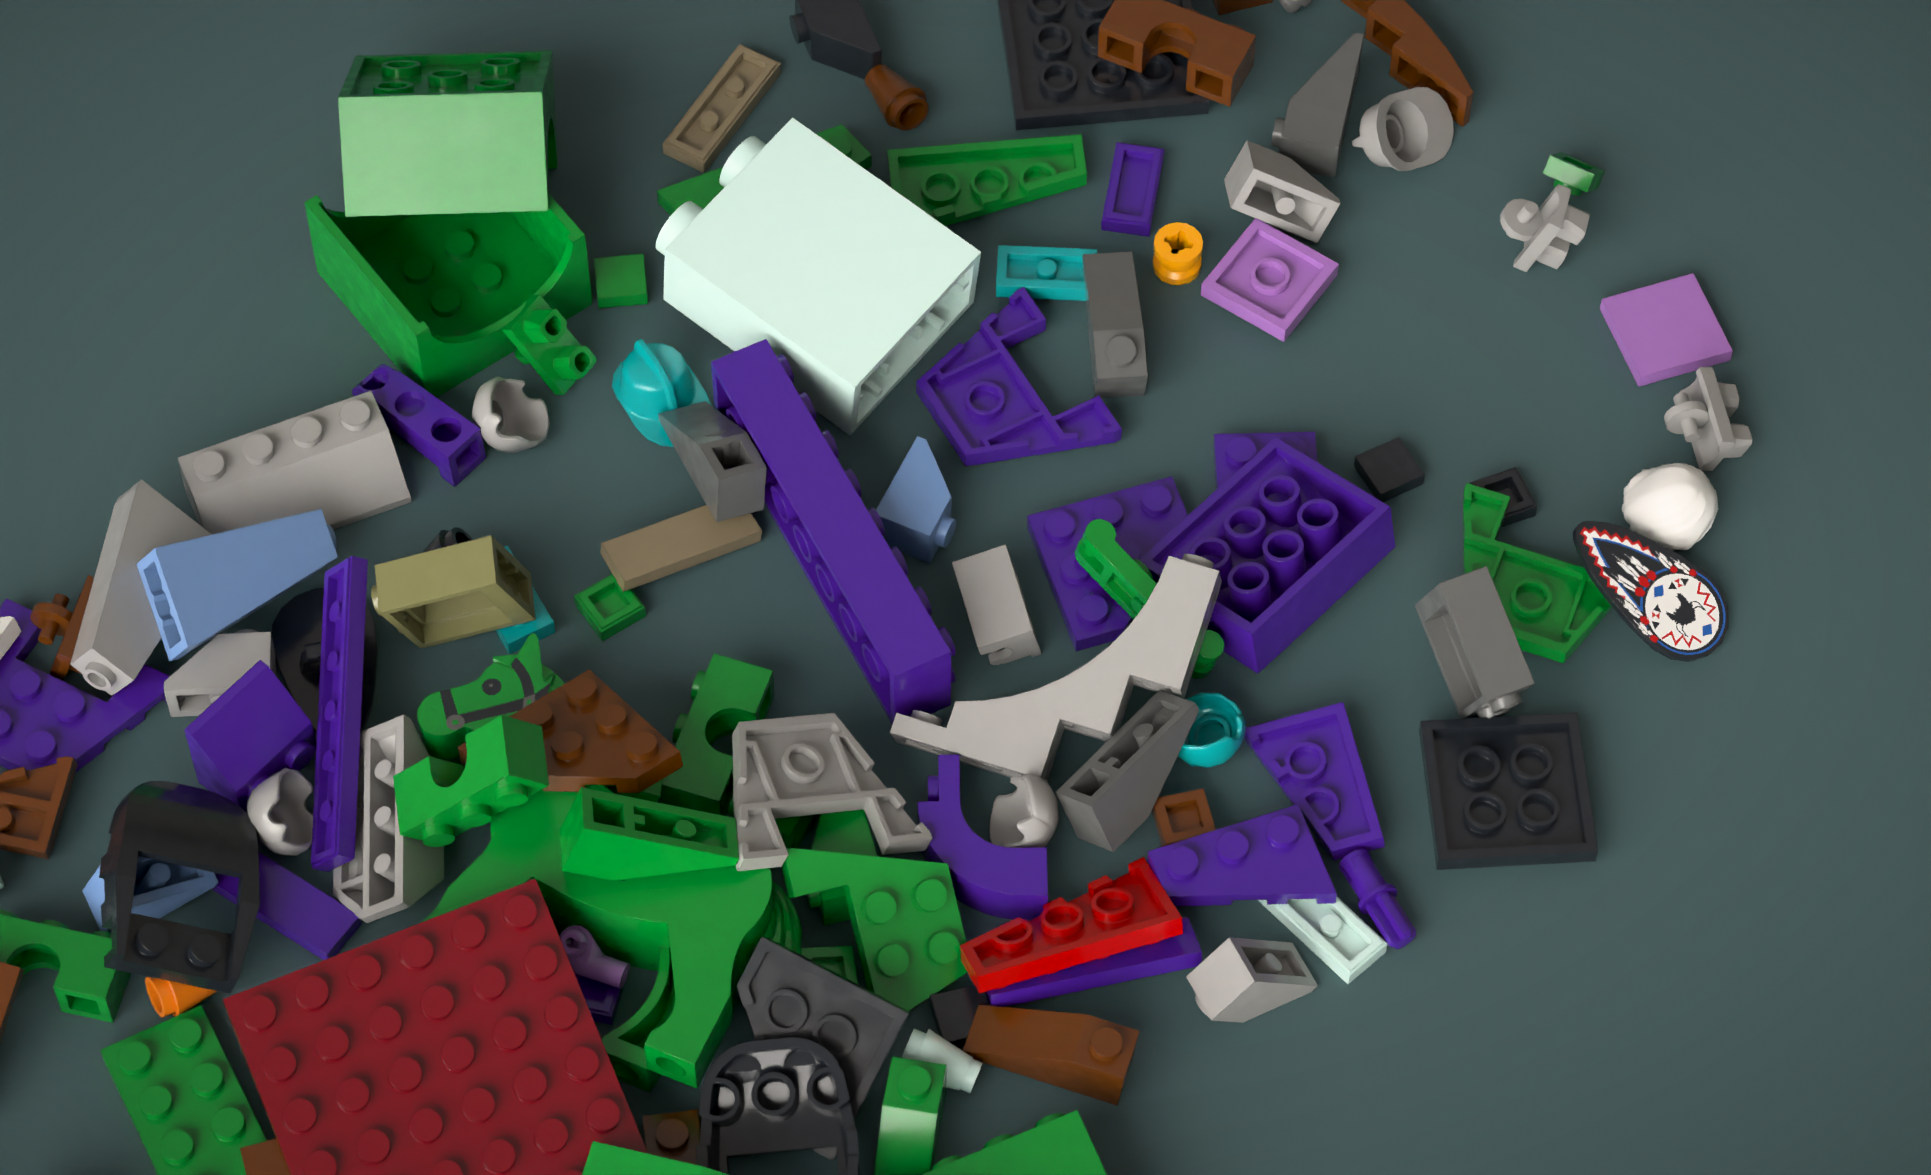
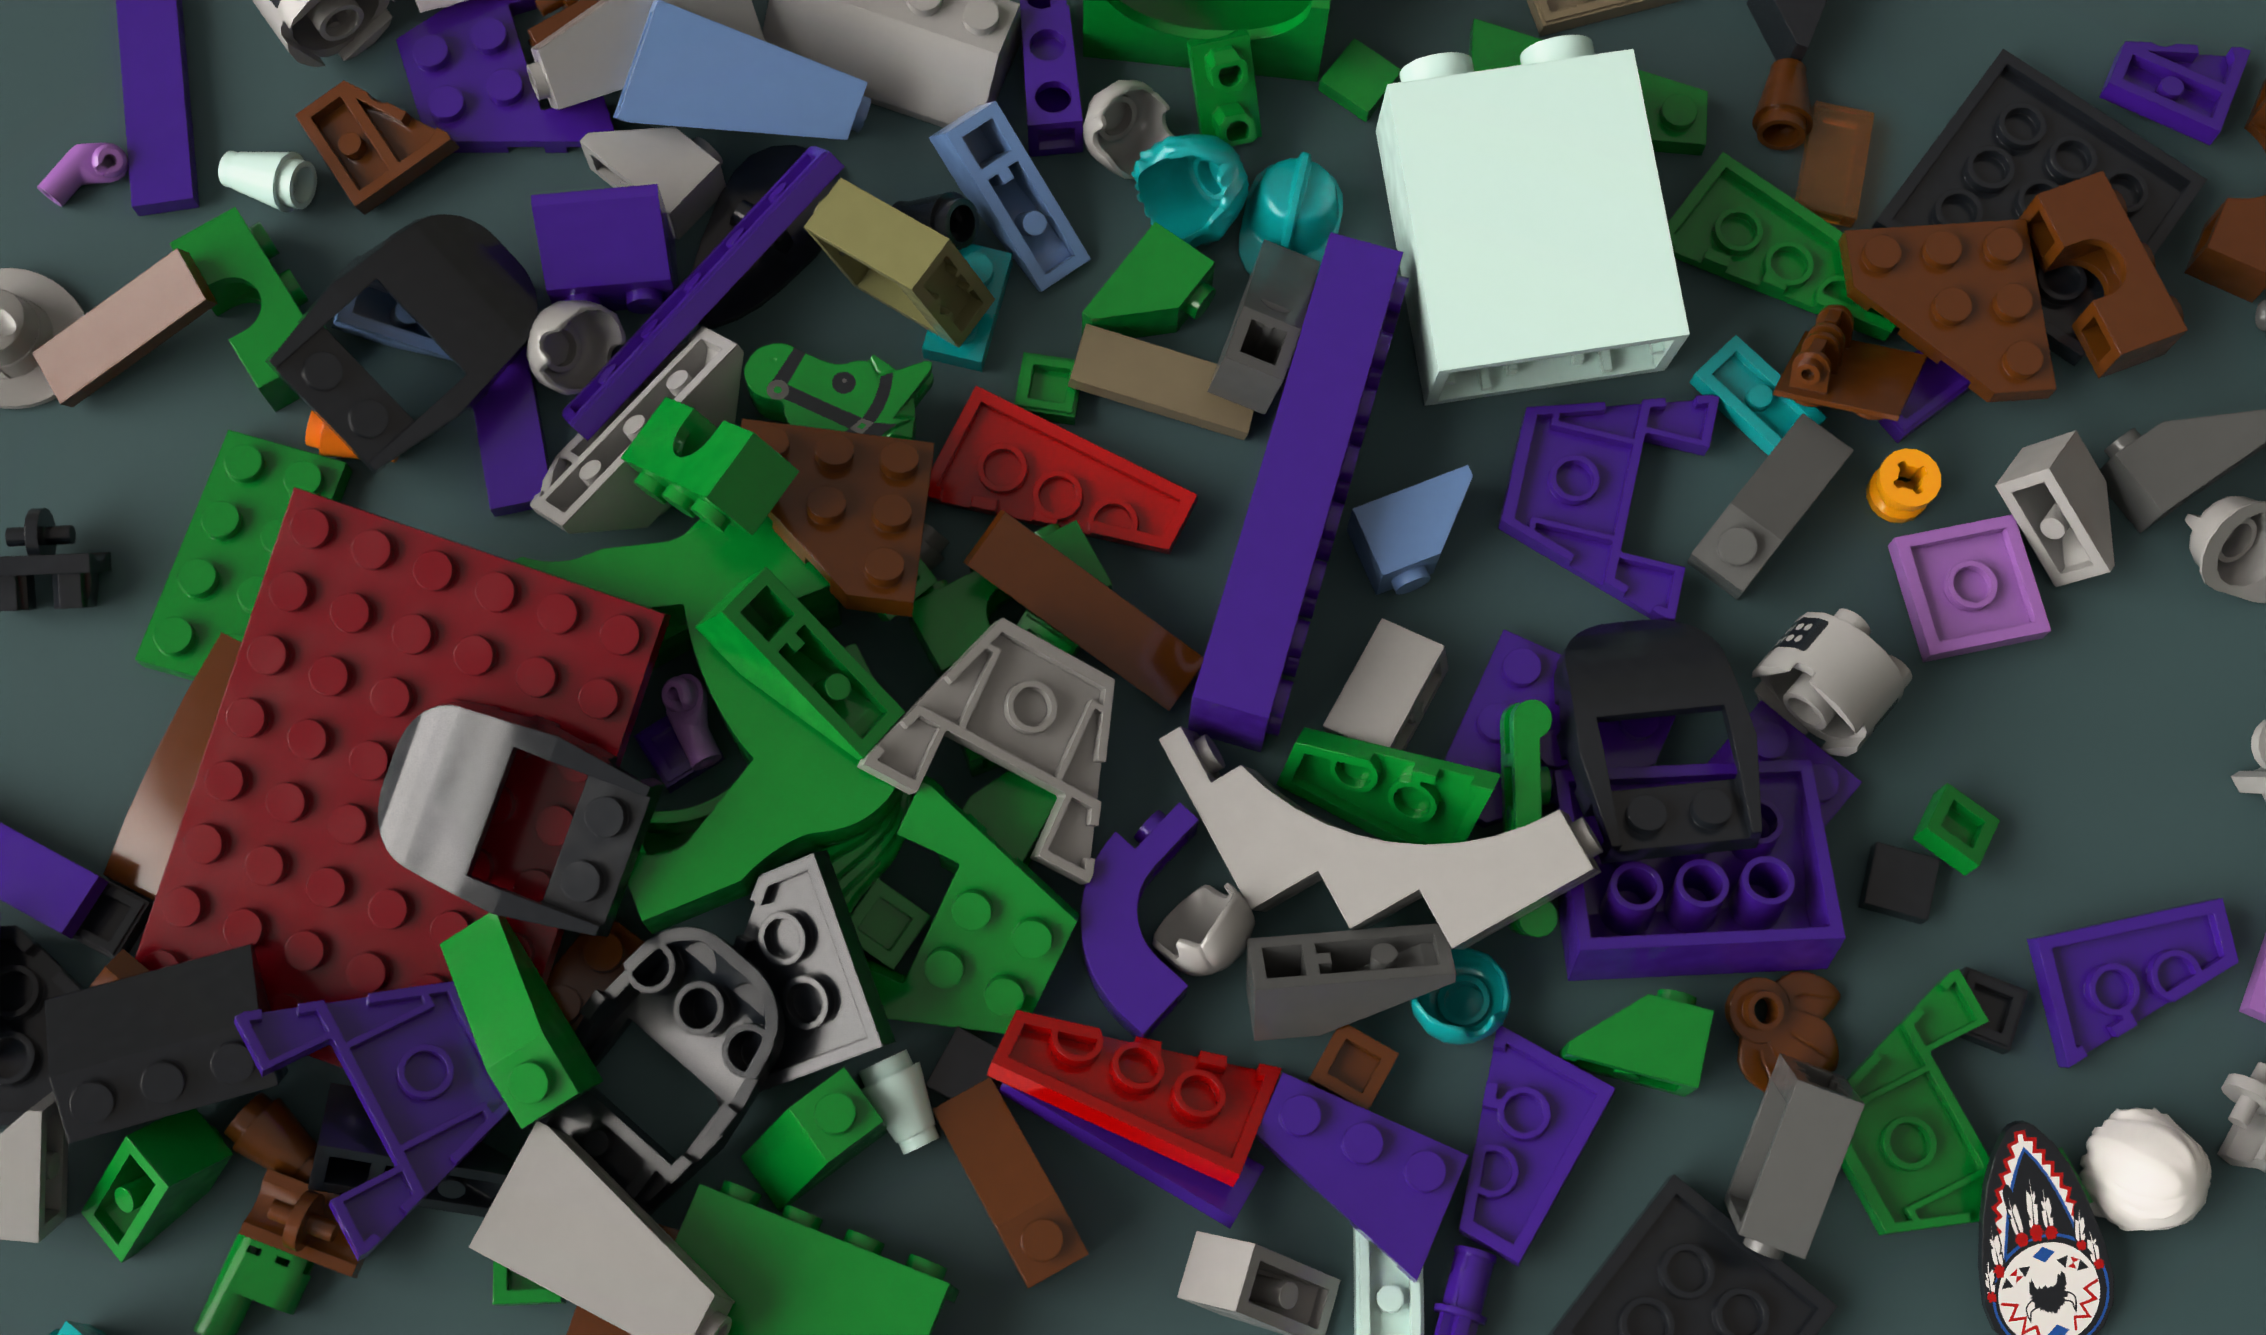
camera: 40 degrees right, 15 degrees up
(440, 497) = (1010, 194): none -> medium blue slope
(501, 1089) = (447, 790): none -> black slope
(585, 418) = (1192, 186): none -> teal hair
(621, 491) = (1154, 288): none -> green slope
(664, 650) = (1051, 476): none -> red wing
(761, 693) = (1084, 610): none -> reddish brown tile
(958, 107) = (1835, 162): none -> clear orange tile
(1049, 645) = (1387, 789): none -> green wing
(1076, 219) = (1849, 373): none -> reddish brown hinge
(1108, 122) = (1959, 299): none -> reddish brown plate
(1144, 457) = (1648, 673): none -> black slope
(1244, 384) = (1831, 679): none -> light grey brick
(1339, 665) = (1649, 1043): none -> green slope
(1391, 413) = (1956, 829): none -> green plate
(1401, 587) = (1791, 1026): none -> reddish brown plate
(1556, 411) = (2119, 971): none -> dark purple wing

